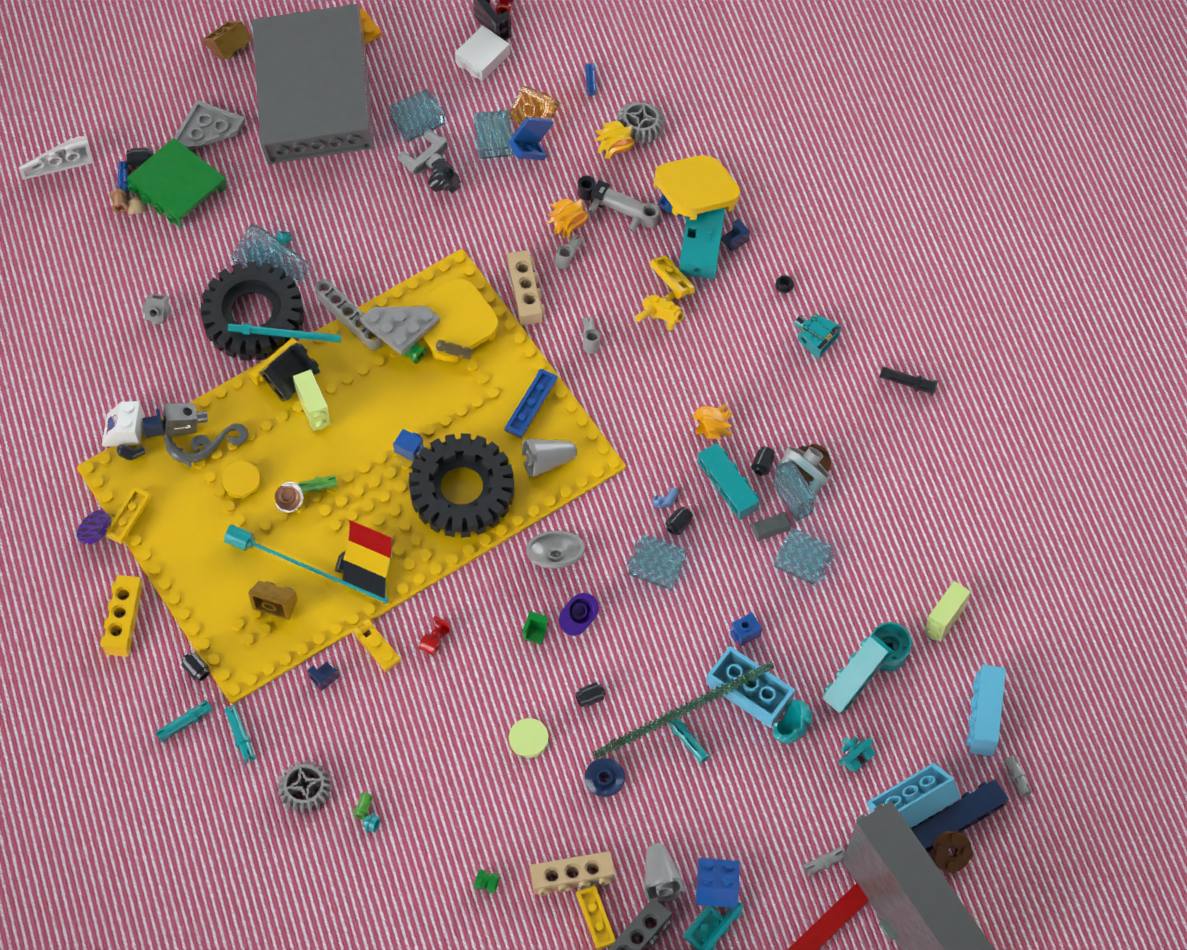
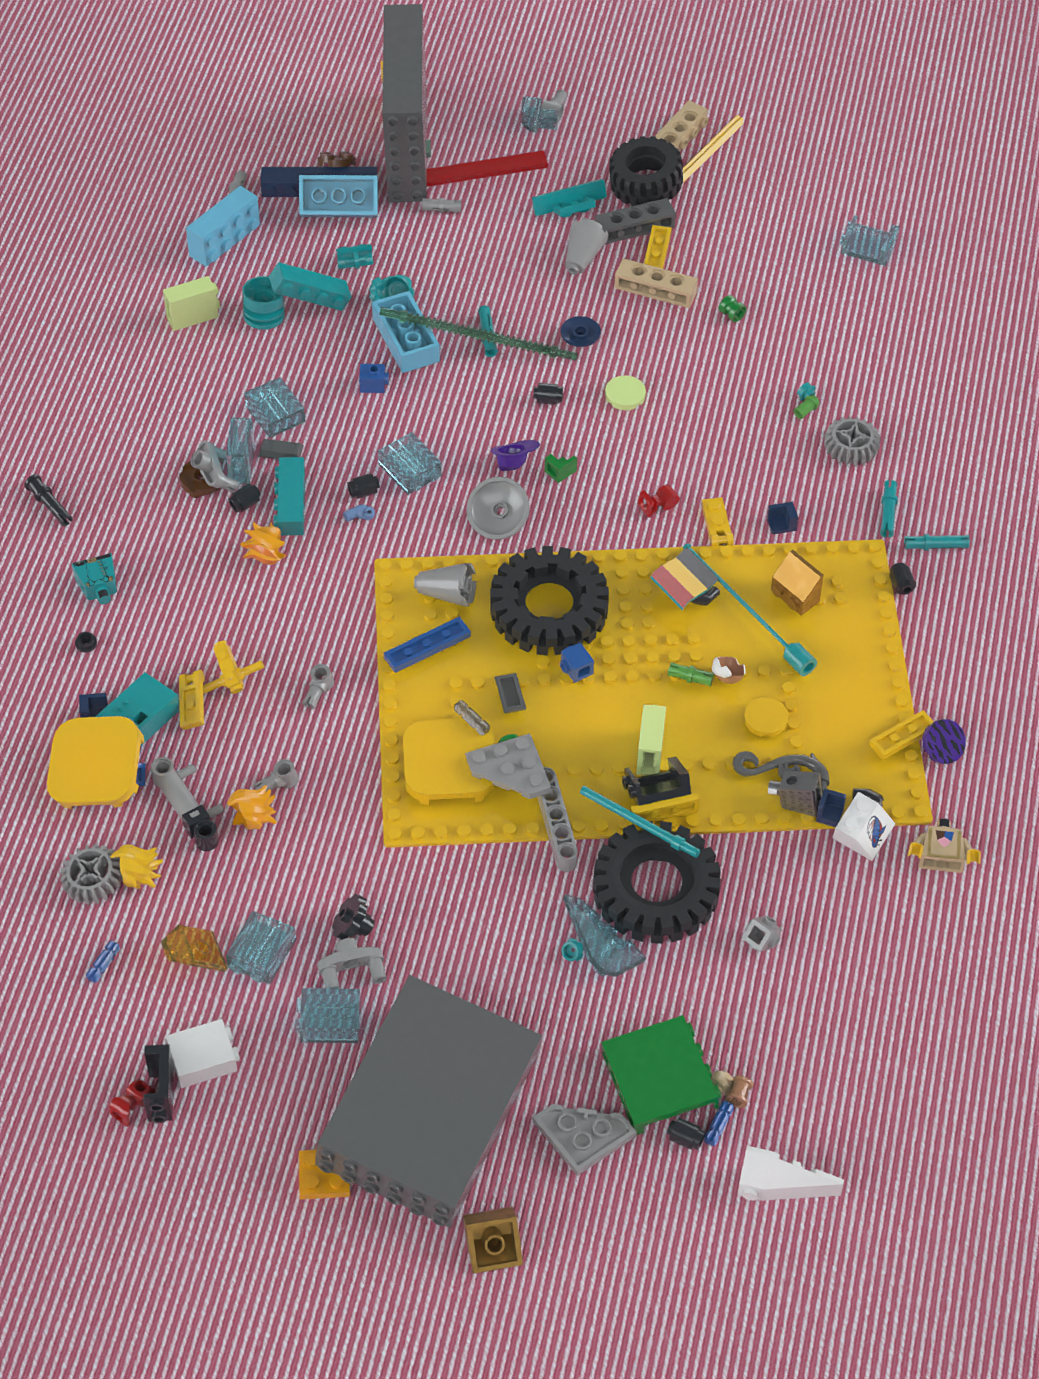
camera: 150 degrees left, 10 degrees down
(56, 441) = (943, 848): none -> tan torso
(121, 644) = (952, 653): yellow brick -> none
(444, 398) = (510, 693): none -> dark grey tile
(527, 138) = (229, 905): blue bracket -> none
(527, 313) = (341, 793): tan brick -> none
(717, 882) = (542, 217): blue brick -> none

